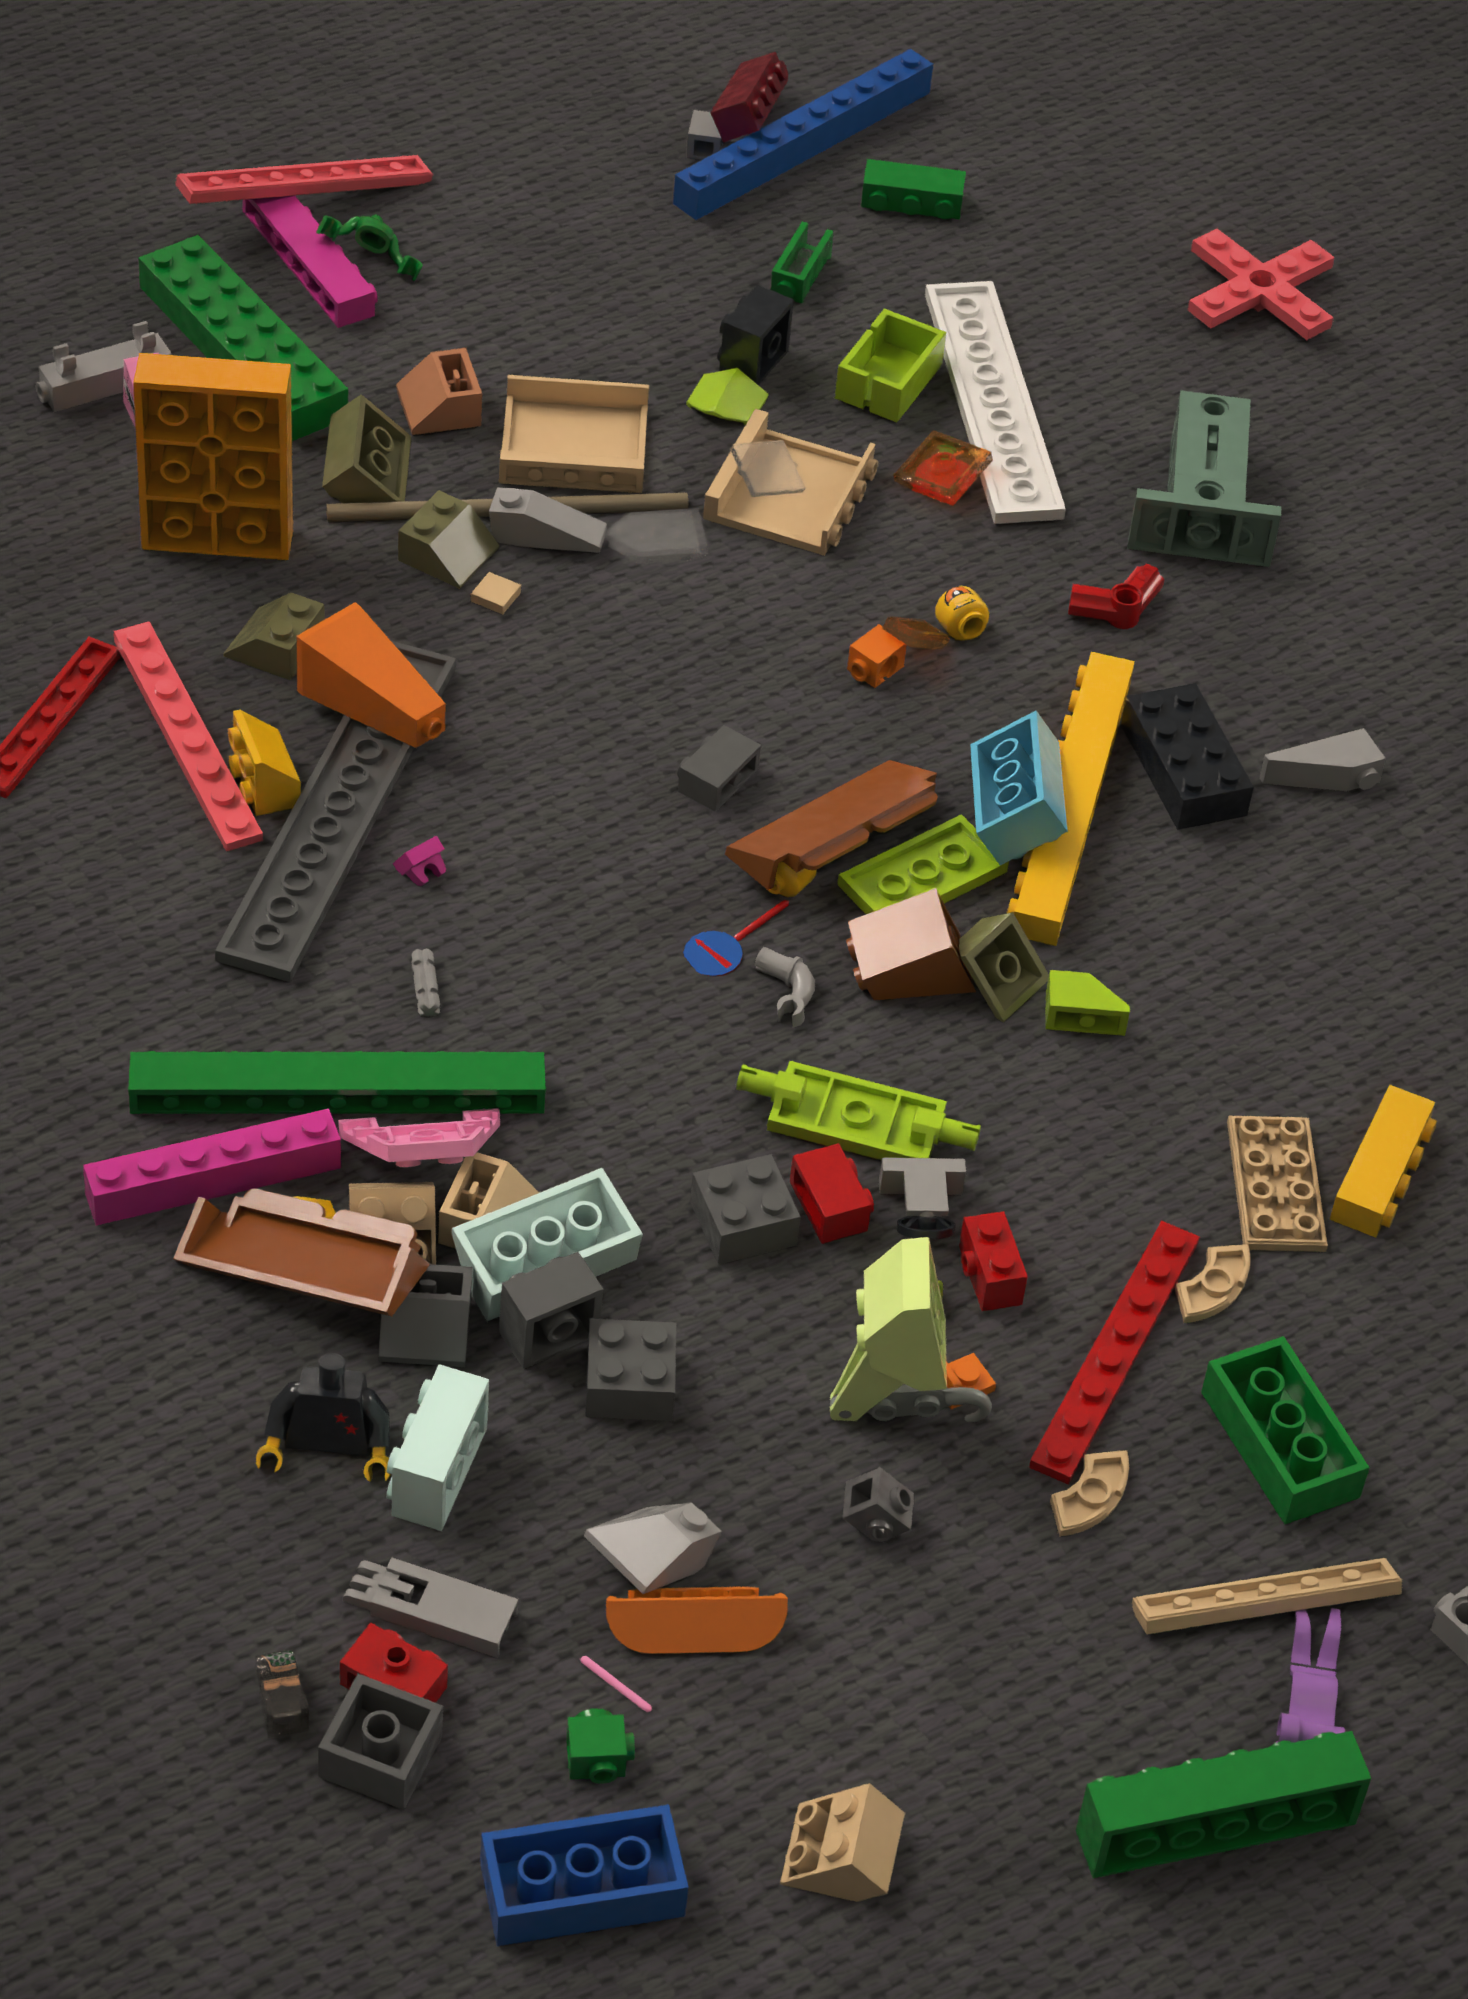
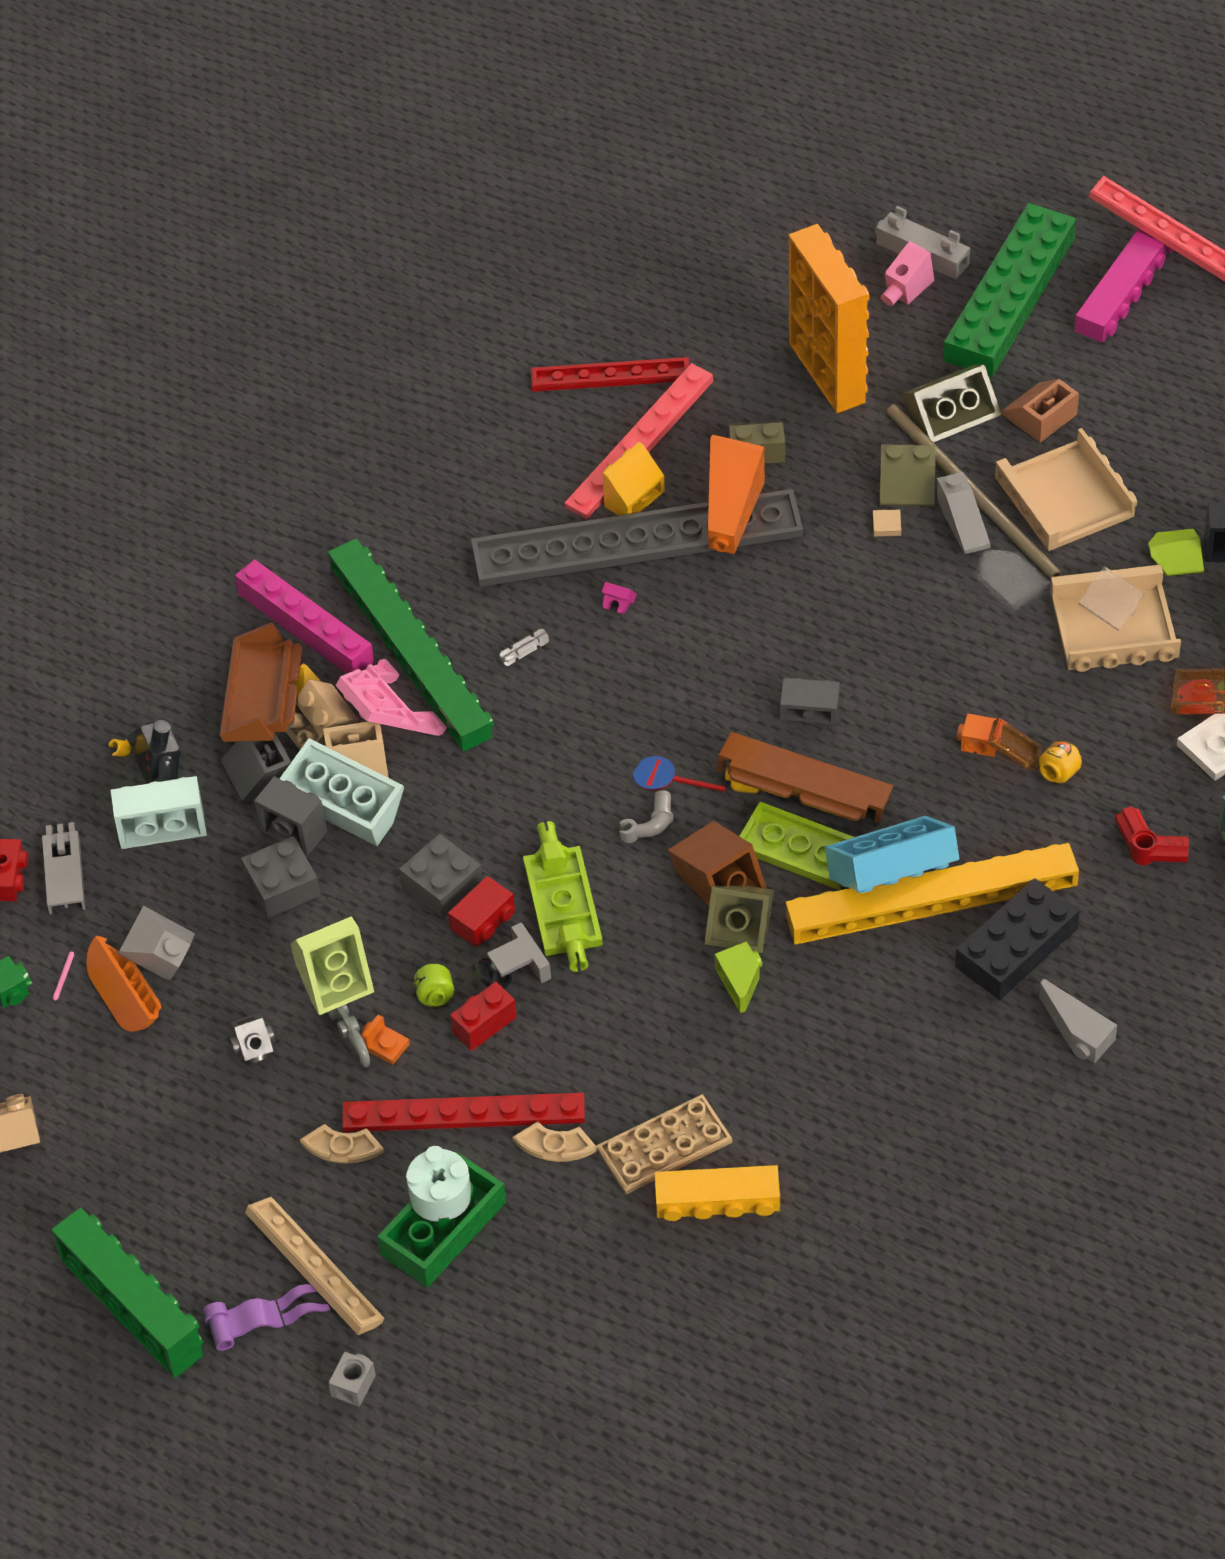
camera: 70 degrees right, 5 degrees up
(374, 236) = (1166, 299): green piece -> none
(1270, 1387) = (438, 1184): none -> light aqua brick

